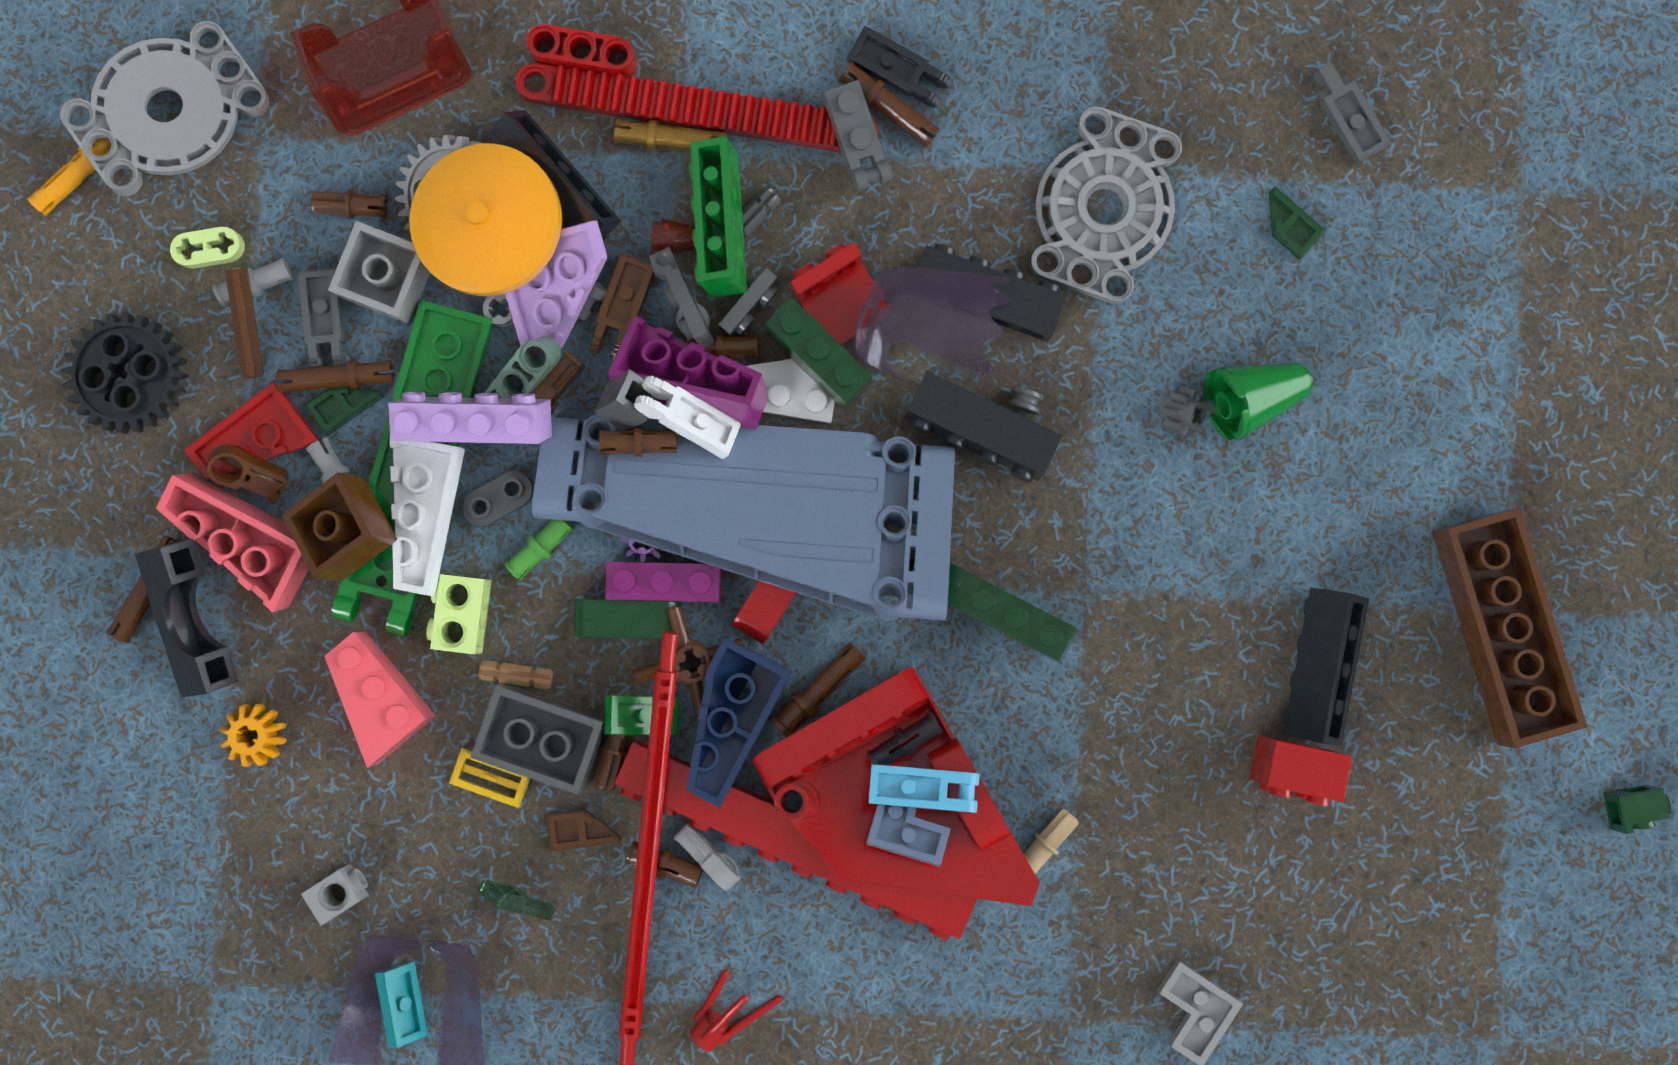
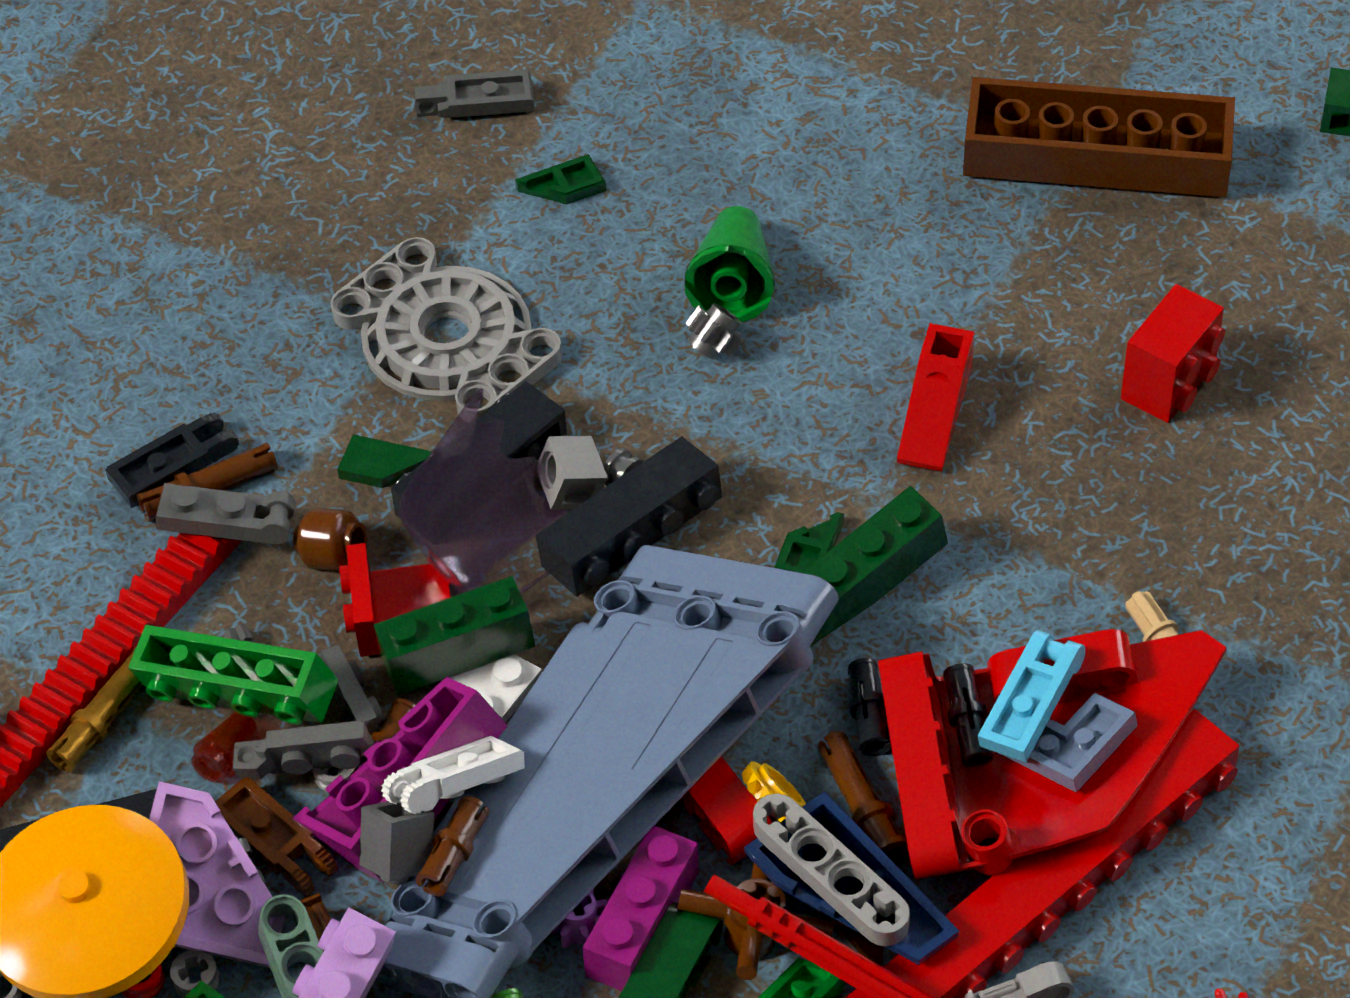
camera: 65 degrees left, 35 degrees down
(720, 703) = (835, 865): none -> light grey beam
(783, 642) = (766, 780): none -> yellow gear
(873, 220) = (324, 536): none -> reddish brown head
(897, 662) = (868, 707): none -> black pin
(963, 219) = (378, 461): none -> dark green tile
(1005, 364) = (570, 471): none -> light grey brick
(1015, 563) = (806, 545): none -> dark green tile
(1187, 604) = (936, 396): none -> red slope
(1325, 666) = (1060, 296): black brick -> none

